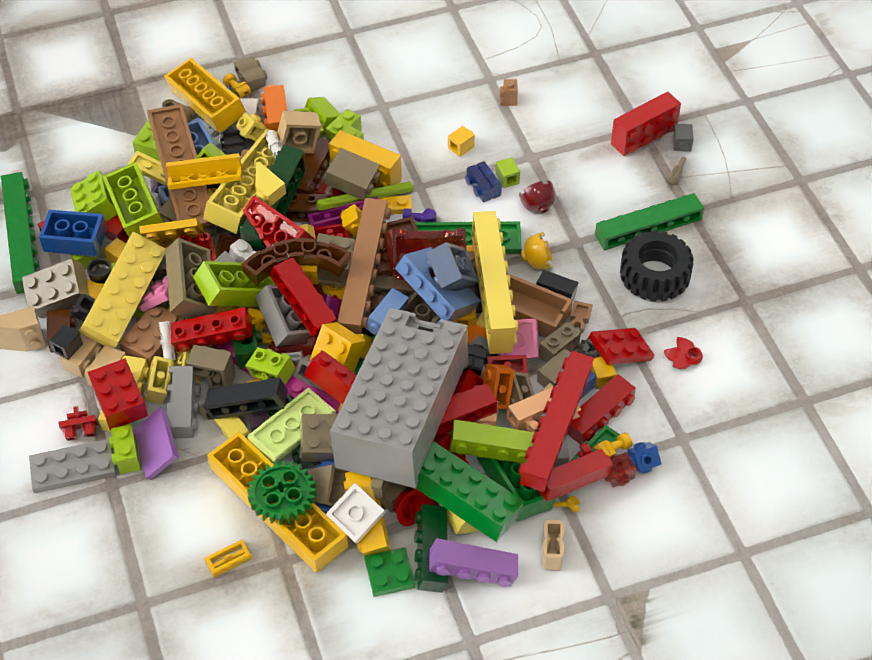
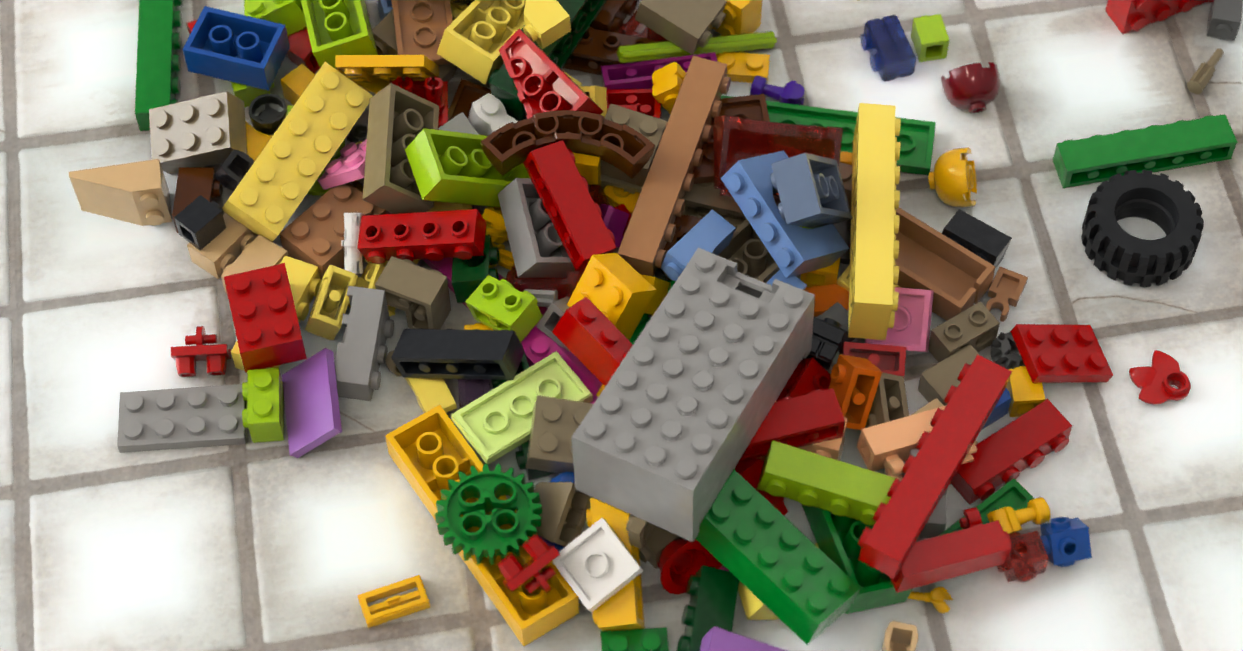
camera: 10 degrees right, 5 degrees up
(319, 512) = (541, 556): none -> red hips

